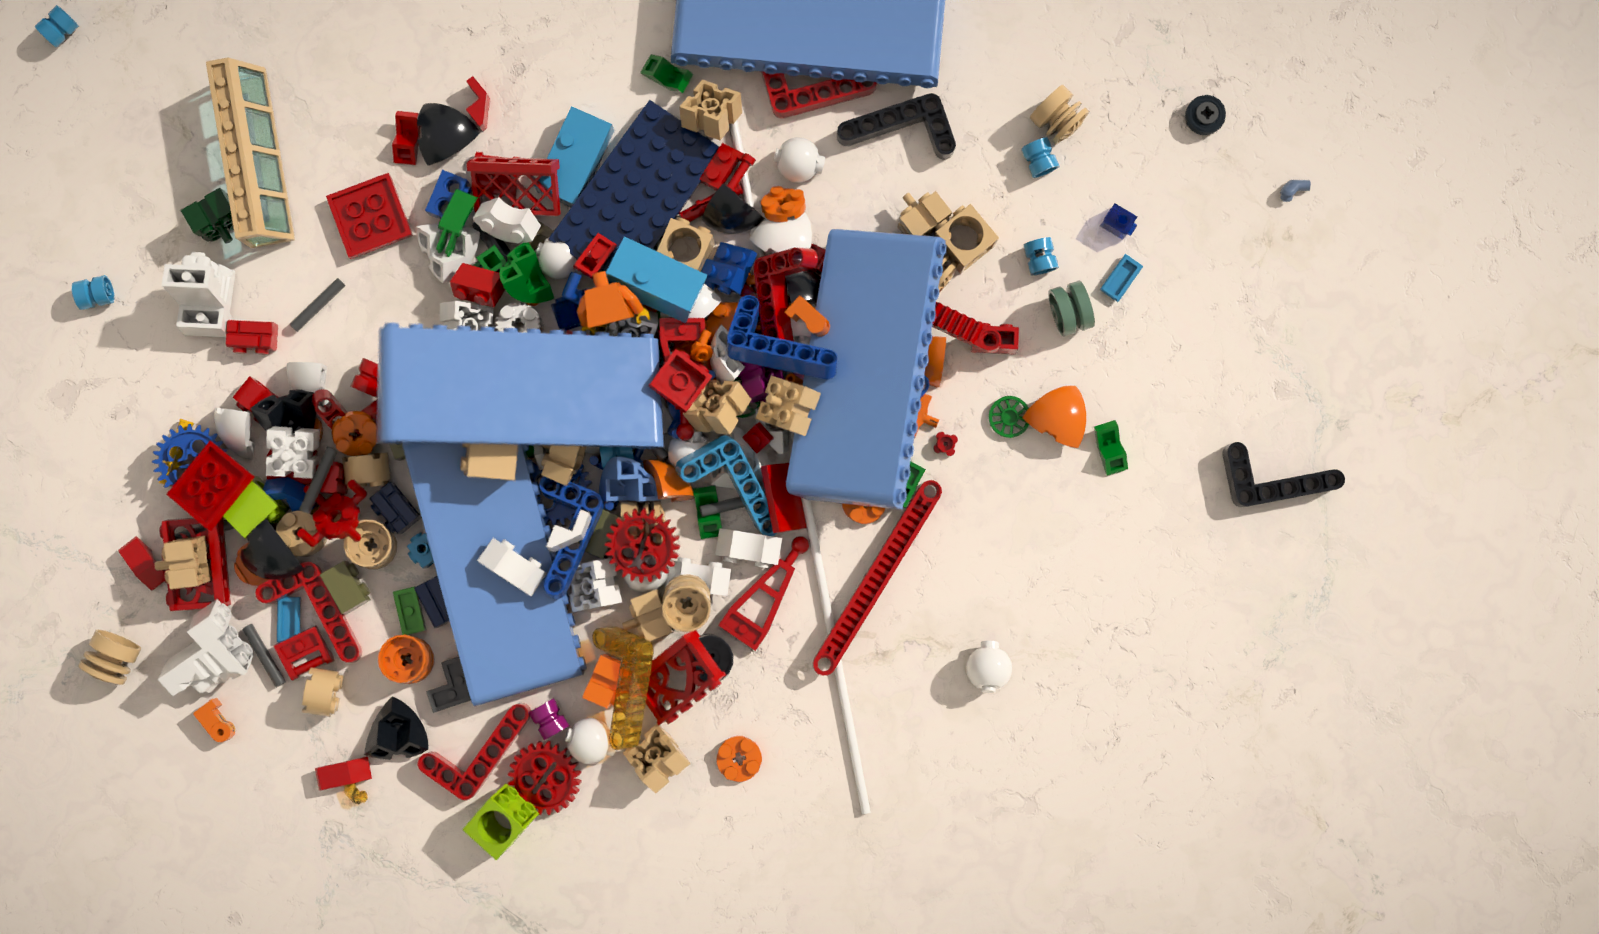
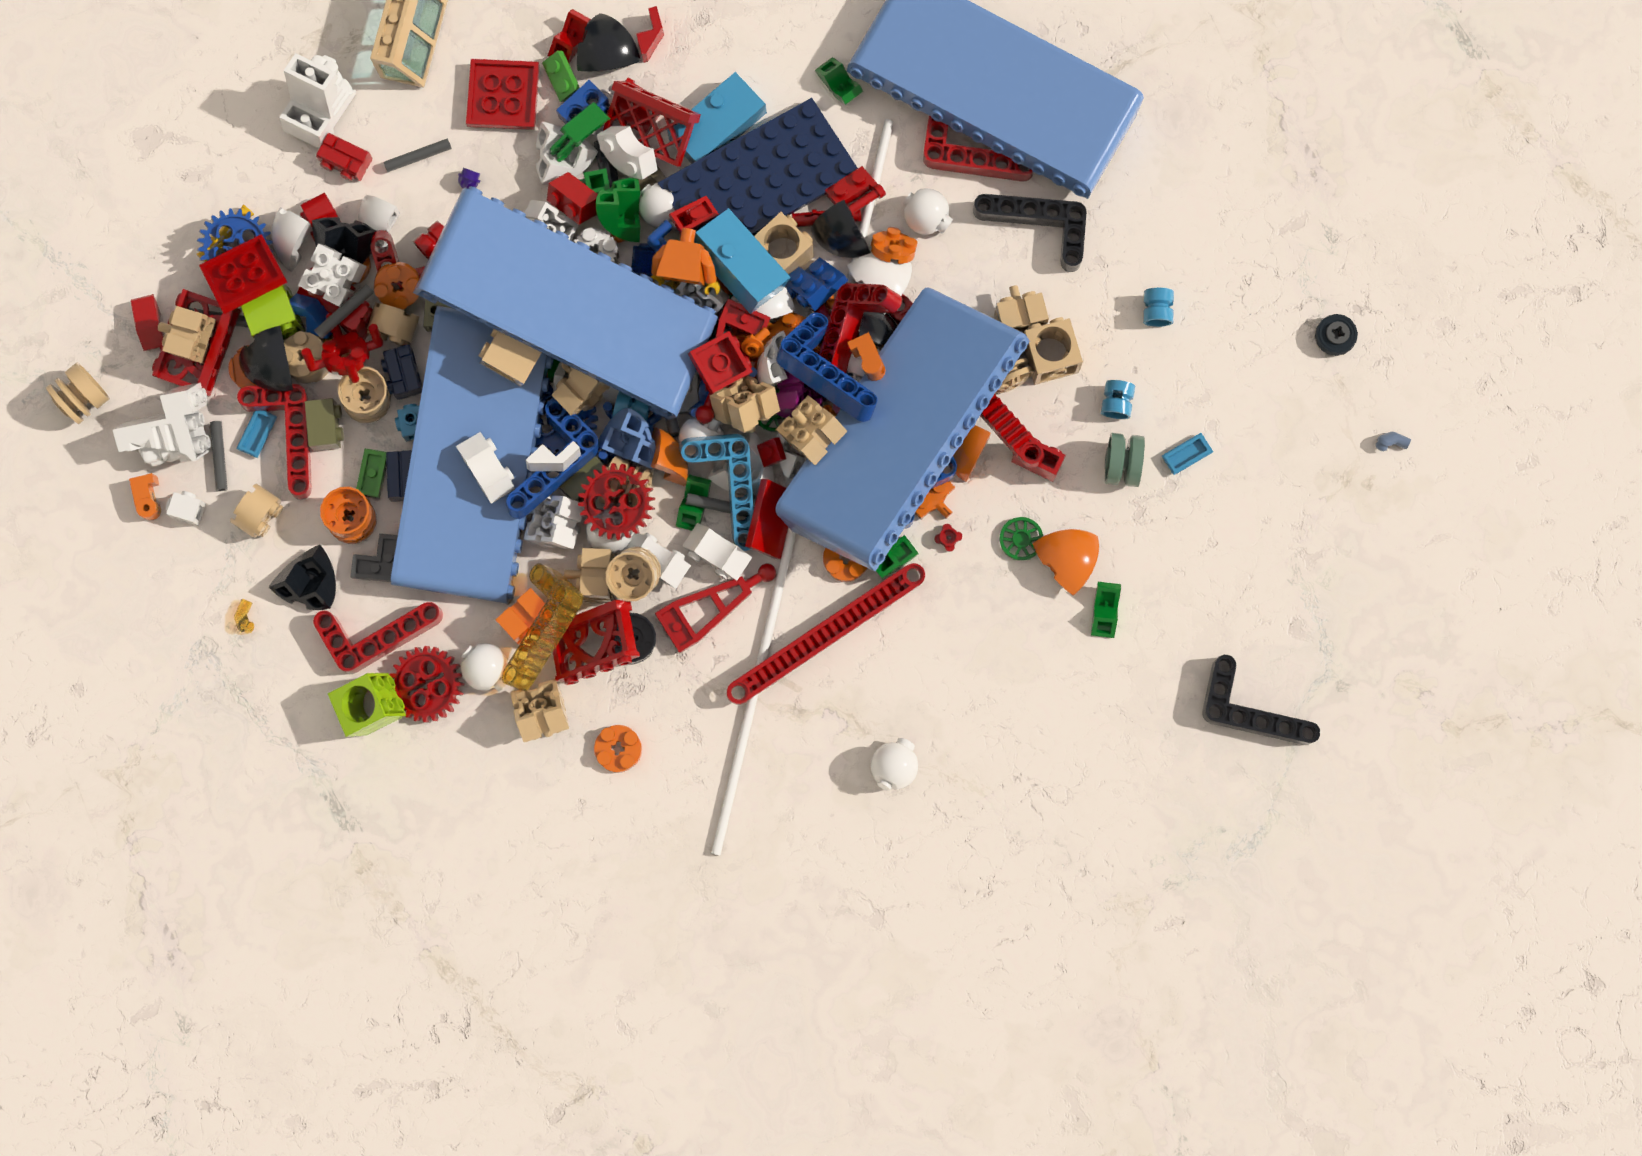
camera: 30 degrees right, 5 degrees down
(89, 293) = (215, 55): dark azure wheel -> none
(210, 216) = (356, 32): dark green brick -> none
(255, 715) = (185, 507): none -> white brick
(300, 646) = (256, 461): red plate -> none
(343, 773) = (241, 596): red slope -> none
(374, 306) = (468, 178): none -> dark purple plate
(415, 176) = (561, 75): none -> bright green plate
(548, 719) = (455, 630): magenta wheel -> none
(711, 109) = (864, 130): tan brick -> none
(1059, 114) = (1192, 270): tan wheel -> none
(1119, 221) = (1208, 399): clear blue brick -> none

